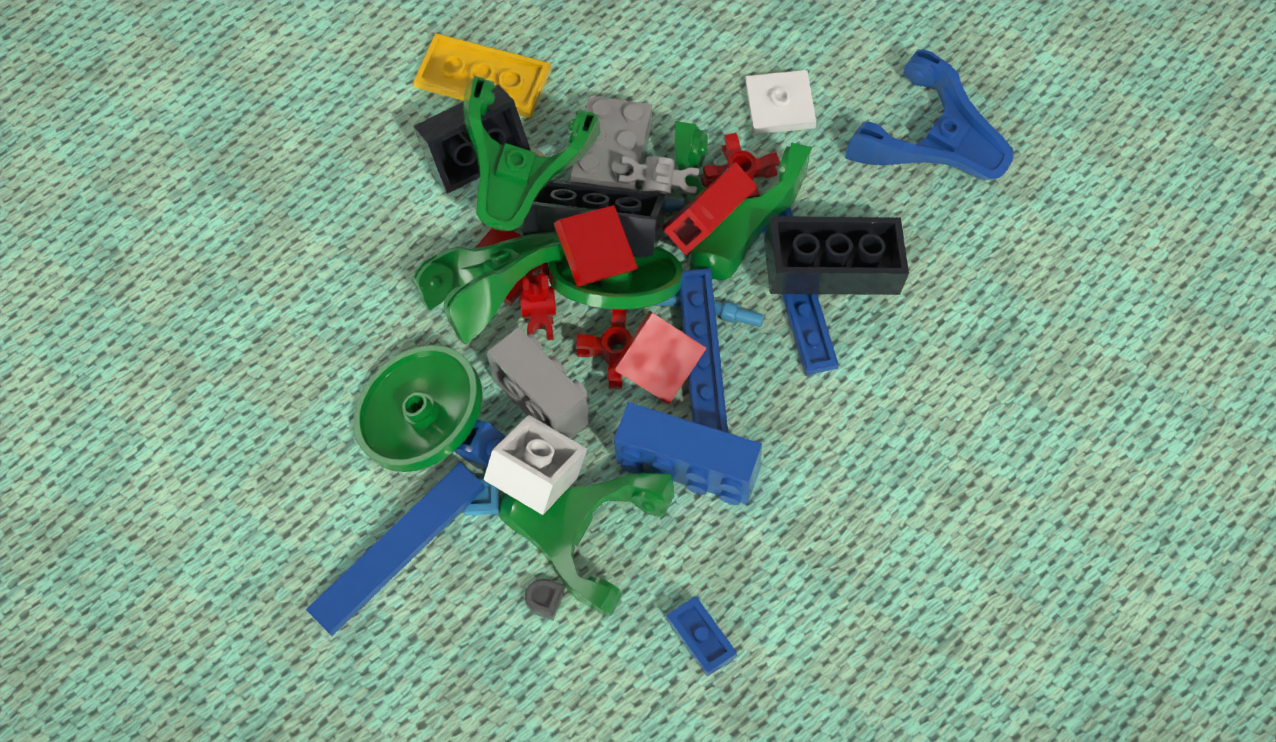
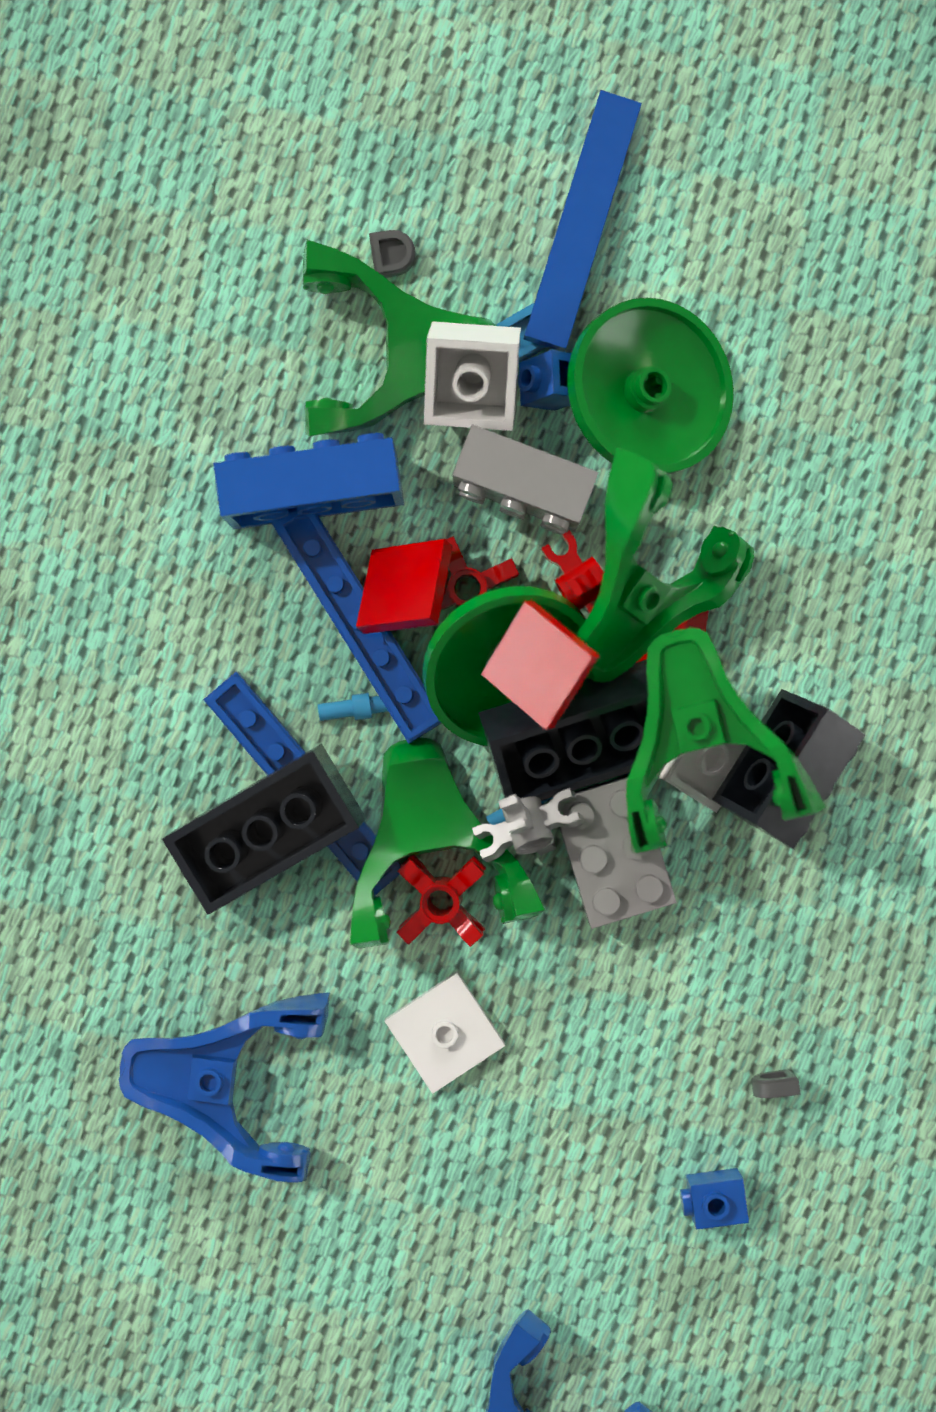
camera: 150 degrees right, 25 degrees up
(454, 63) = (838, 886): yellow tile -> none
(701, 636) = (197, 293): blue plate -> none
(709, 208) = (443, 805): red slope -> none

